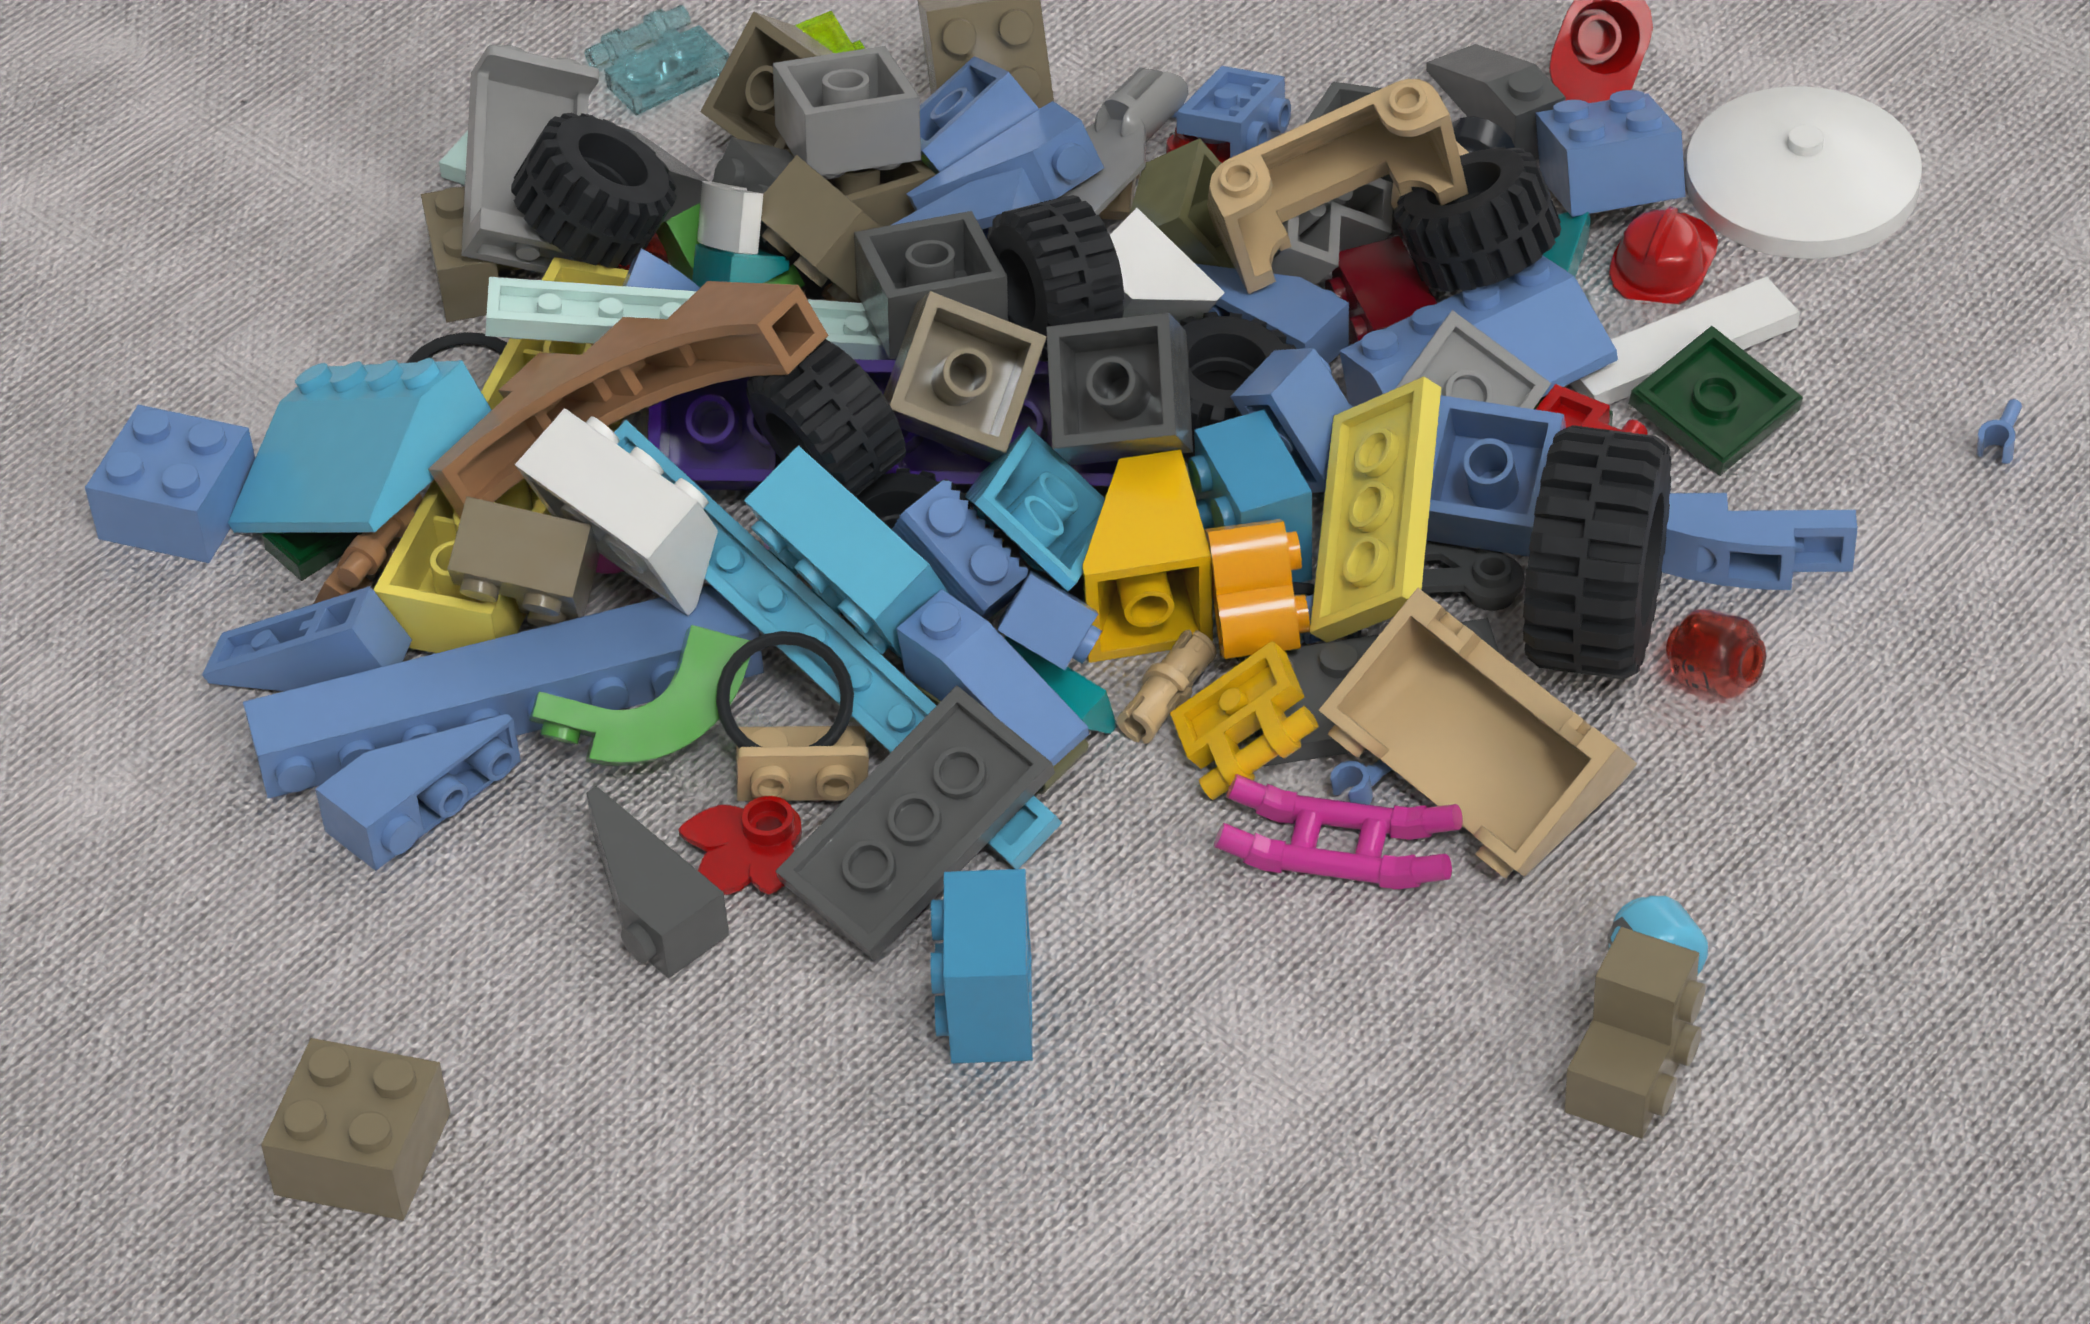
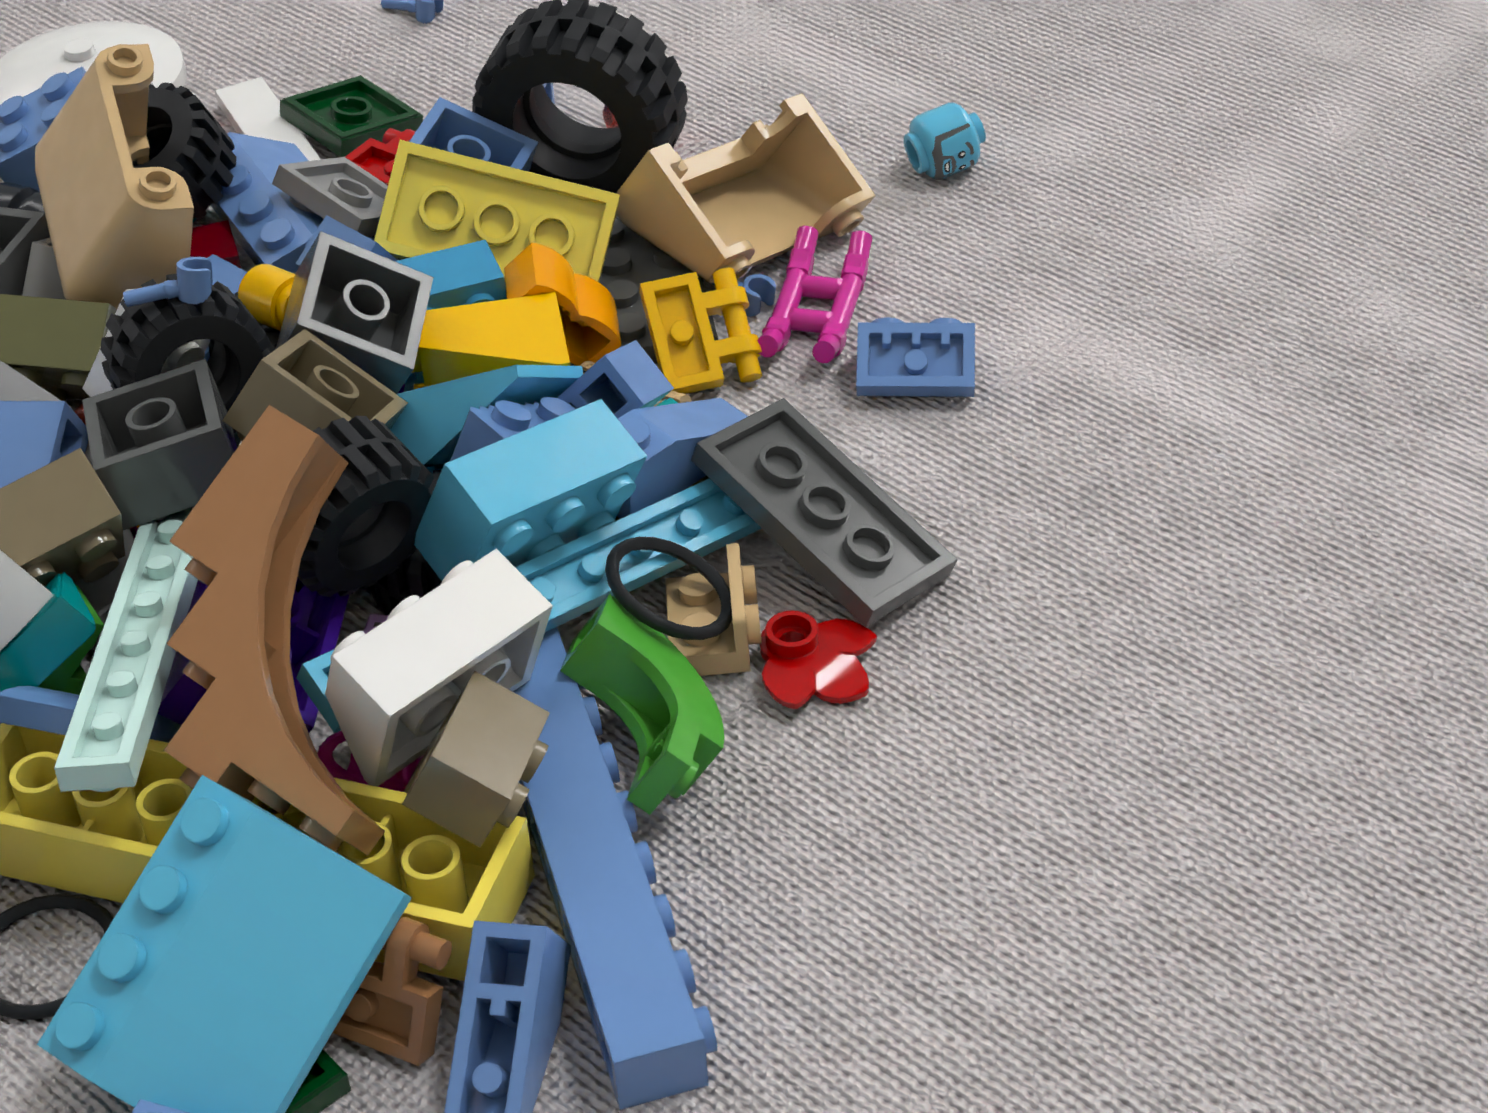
camera: 90 degrees left, 5 degrees down
(356, 1129) = (1227, 914): dark tan brick -> none
(408, 788) = (746, 932): medium blue slope -> none
(661, 900) = (877, 716): dark grey slope -> none
(983, 966) = (1002, 455): dark azure brick -> none
(1050, 215) = (191, 286): none -> medium blue hand
(1214, 919) = (916, 358): none -> medium blue bracket
(1221, 348) = (266, 293): none -> yellow brick
(1637, 1034) = (1036, 148): dark tan brick -> none

